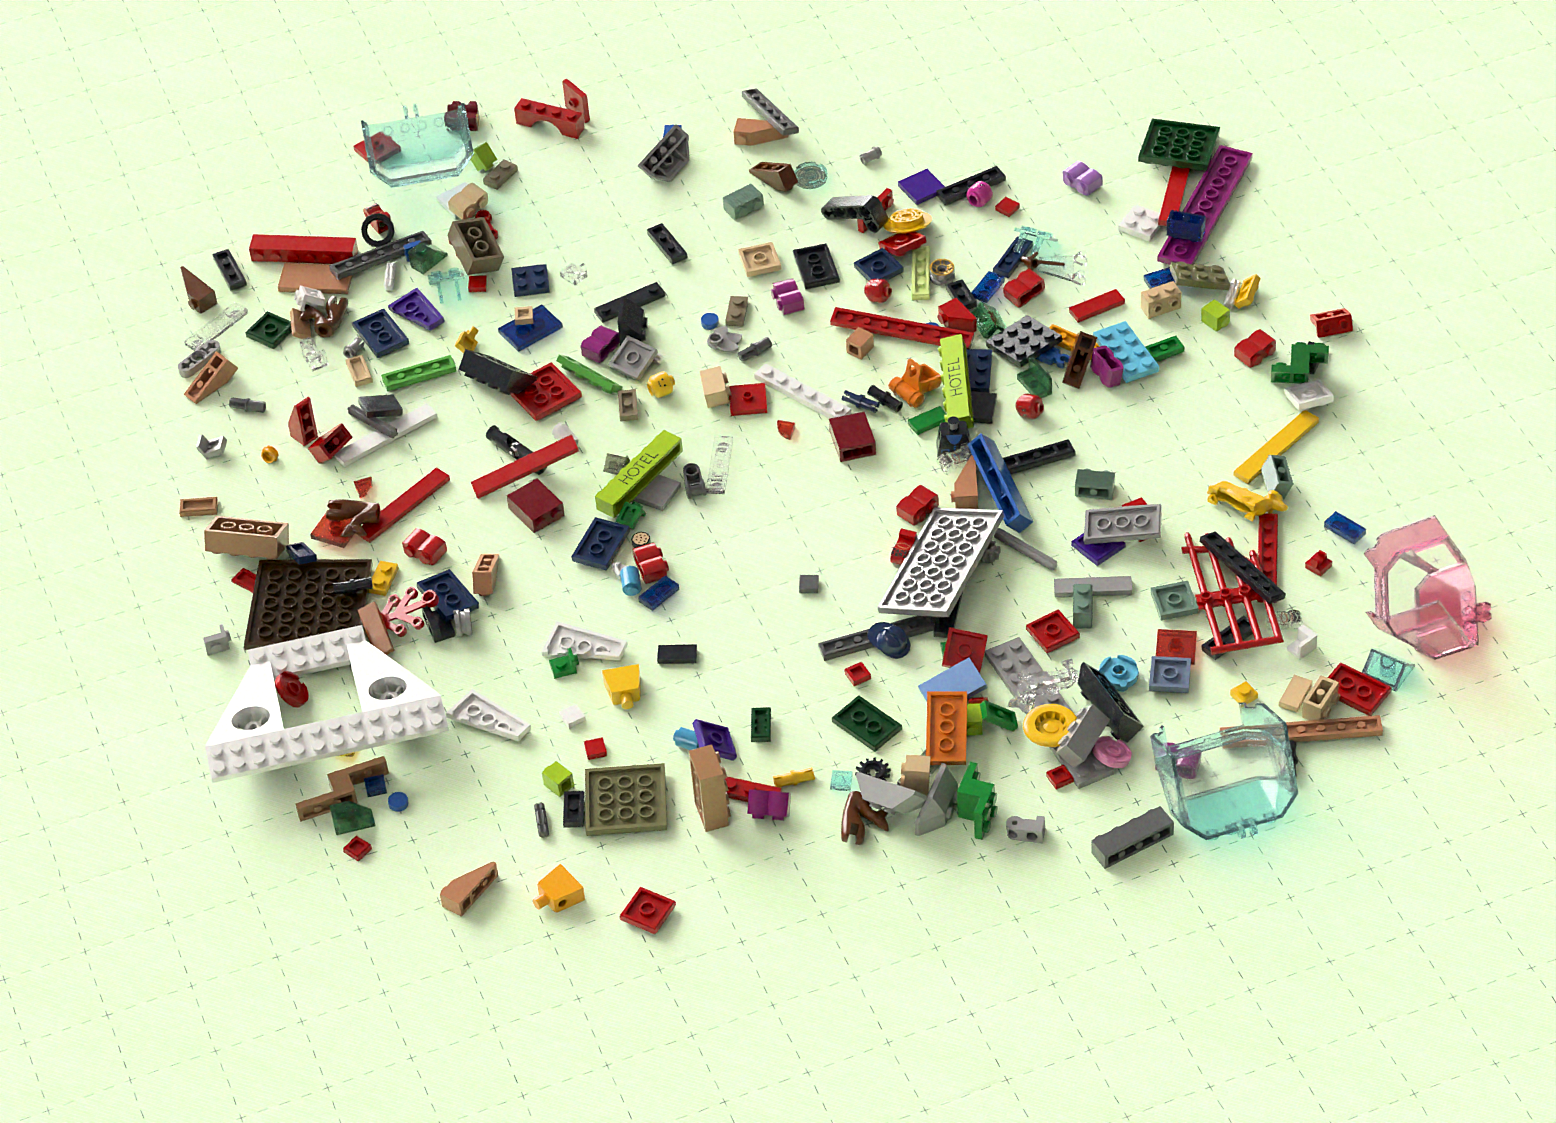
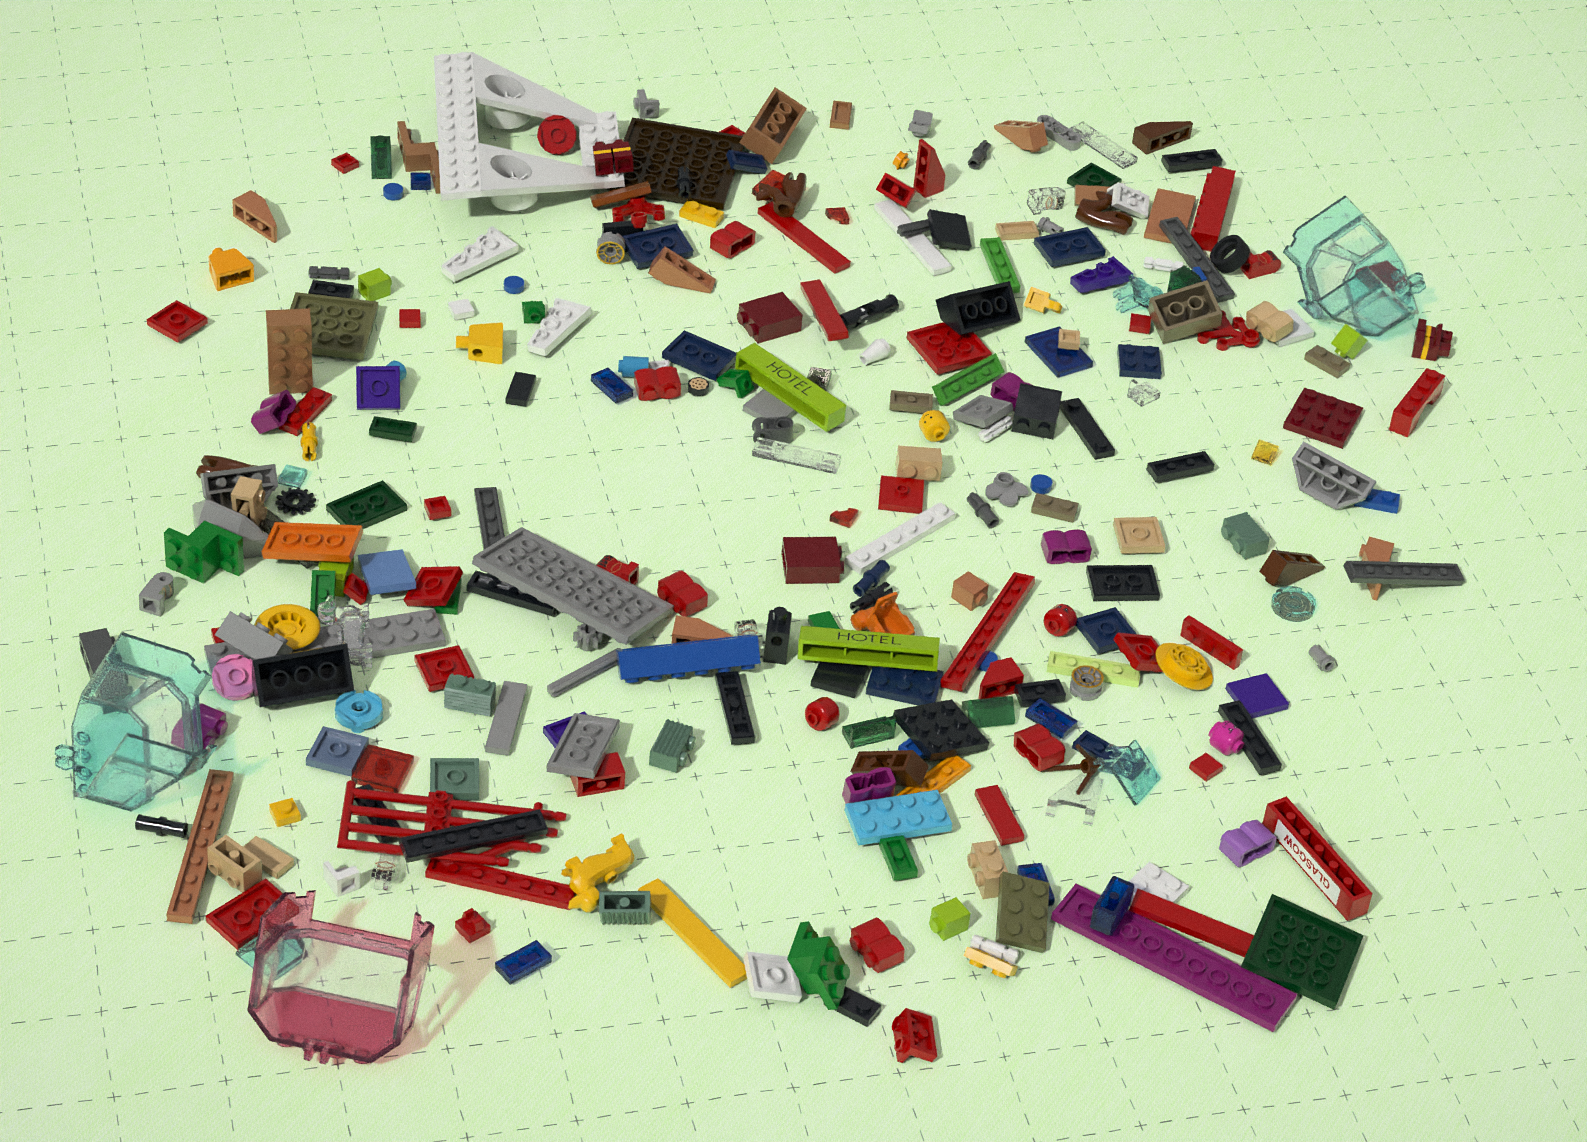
camera: 90 degrees right, 5 degrees down
(343, 626) = (618, 152): none -> dark red hips
(525, 686) = (513, 284): none -> blue tile
(575, 99) = (1439, 419): plate -> none
(576, 172) = (1323, 417): none -> dark red plate
(632, 199) = (1265, 452): none -> clear yellow slope
(808, 583) = (590, 496): dark grey tile -> none
(857, 207) = (1196, 612): black beam -> none
(889, 639) = (477, 536): dark blue piece -> none
(1090, 140) = (1317, 858): none -> red brick

